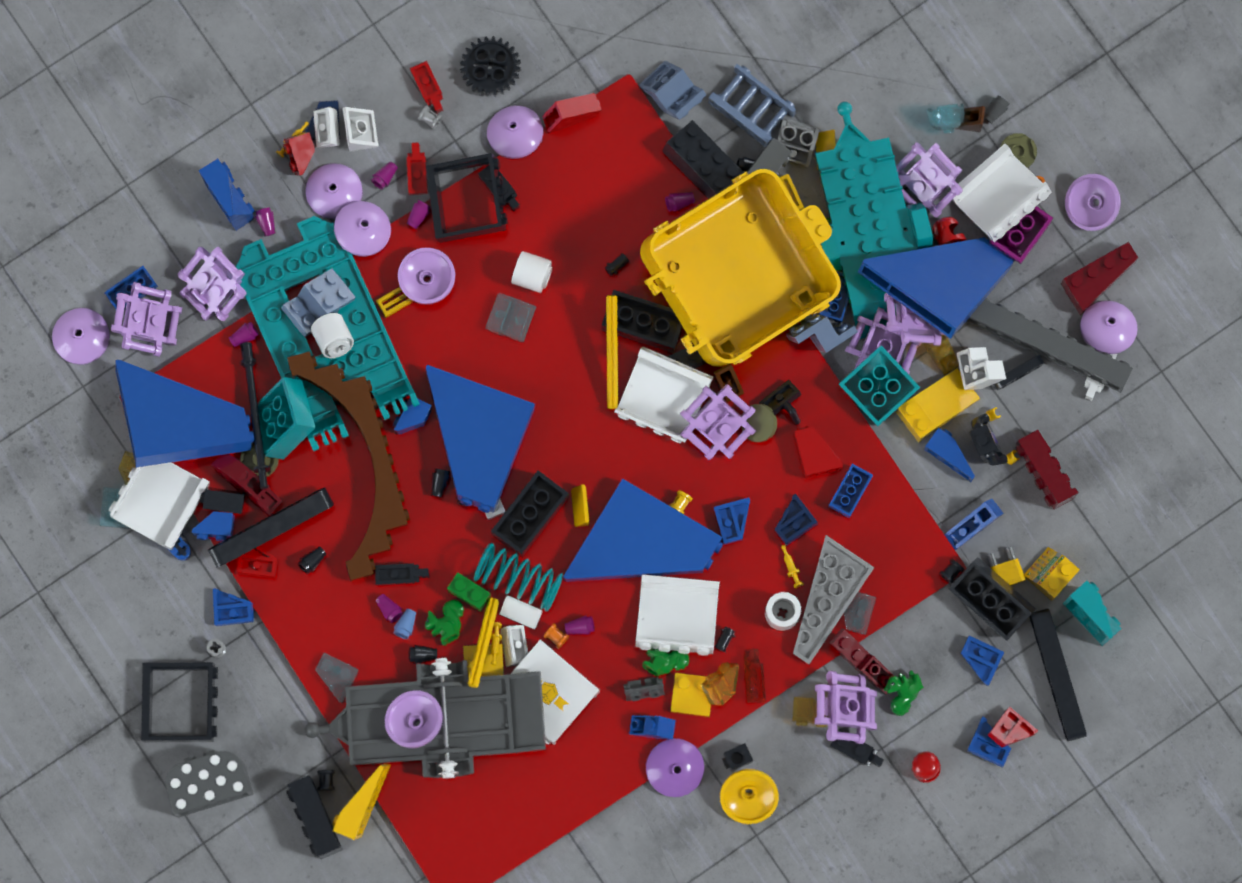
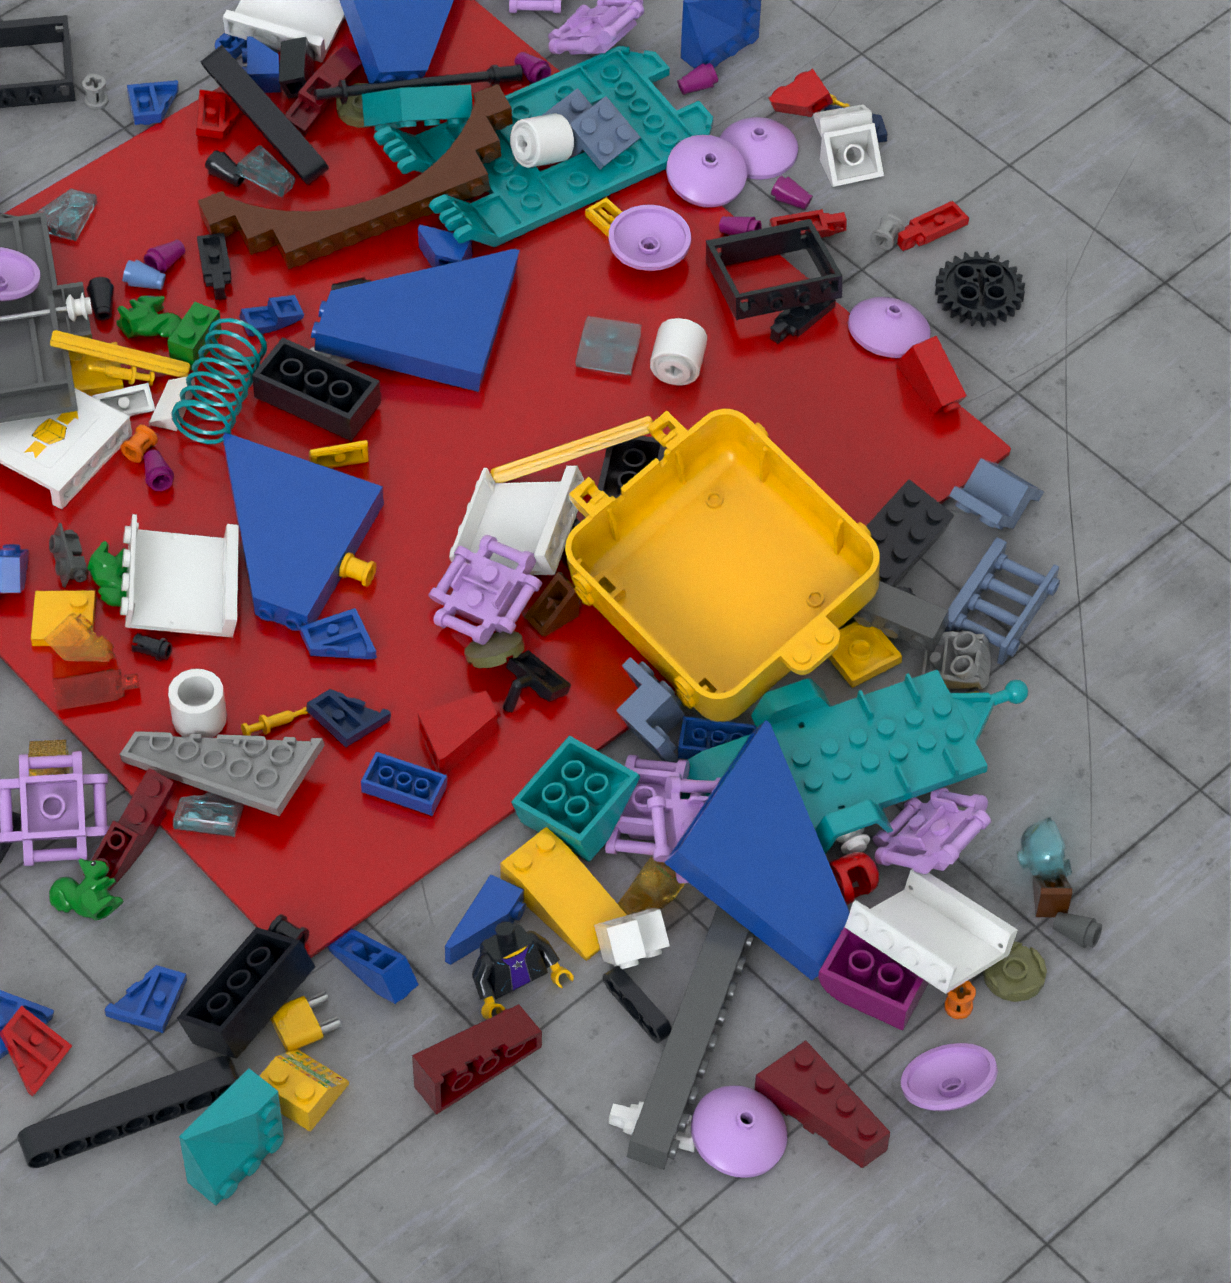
camera: 80 degrees right, 25 degrees down
(319, 531) = (265, 171): none -> clear light blue wing
(451, 540) = (276, 315): none -> blue slope

